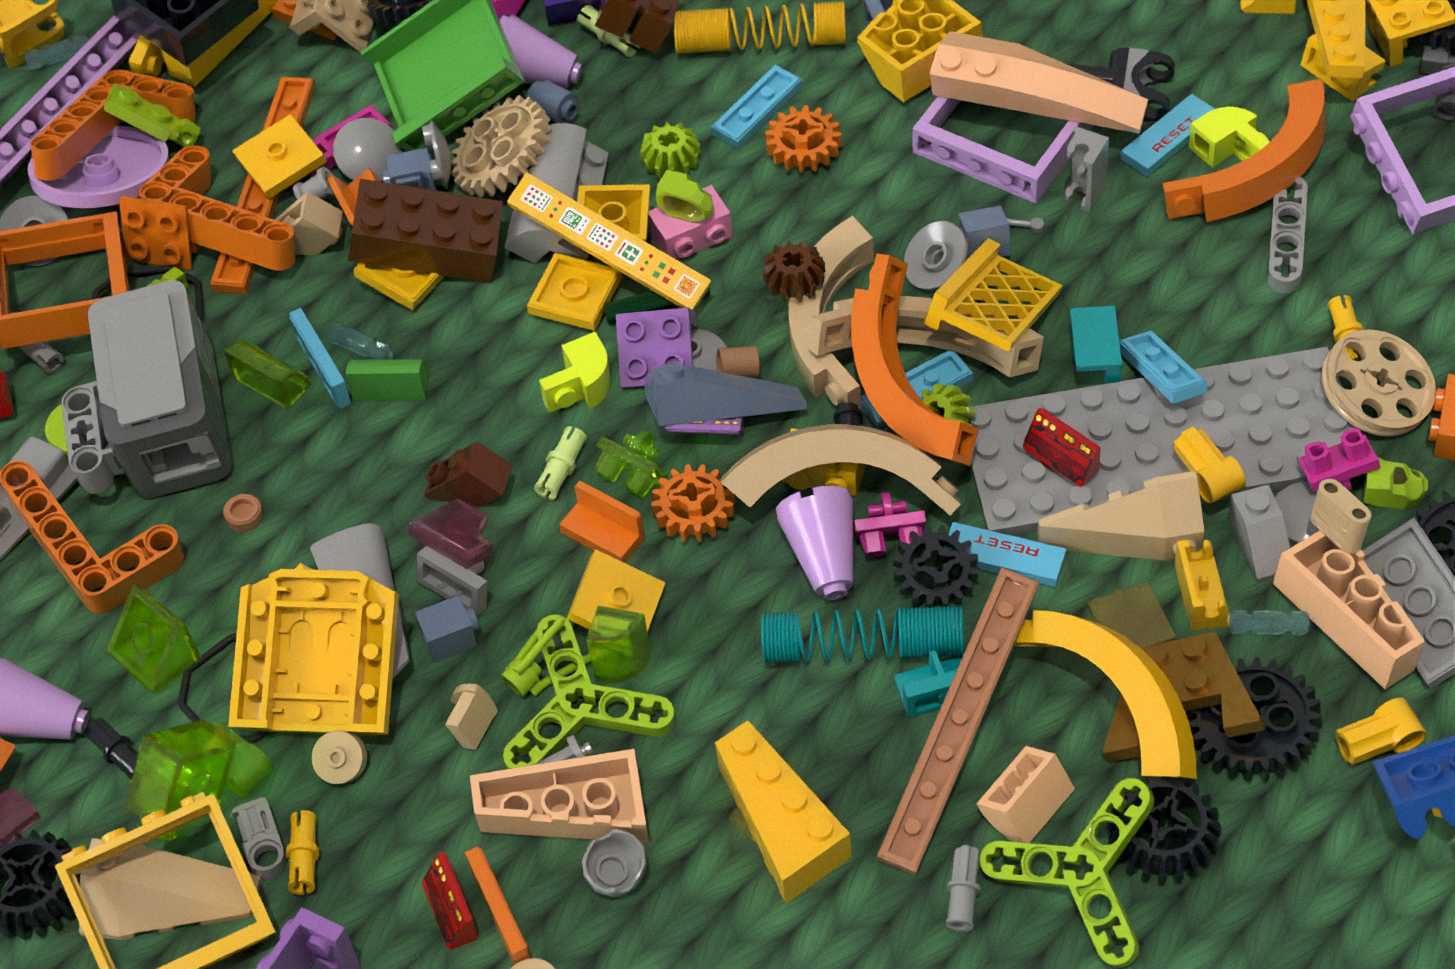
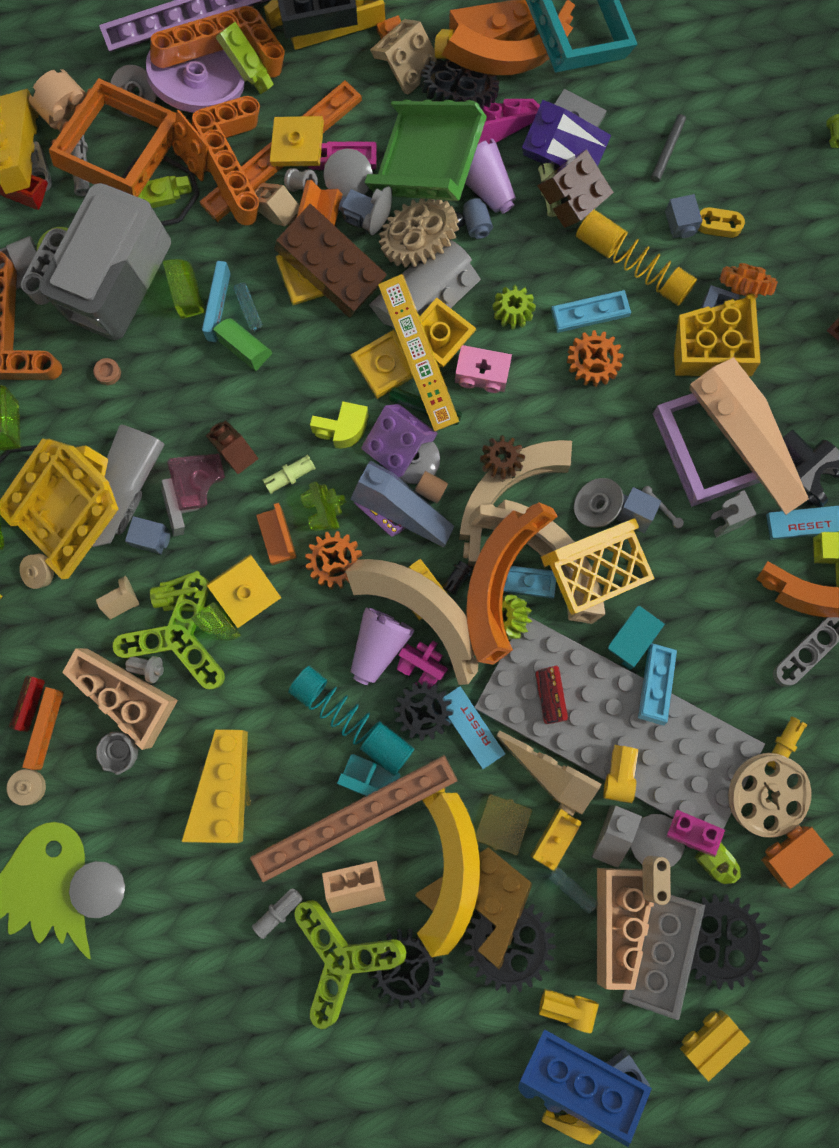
camera: 35 degrees right, 25 degrees up
(683, 197) = (485, 354): lime rock -> none

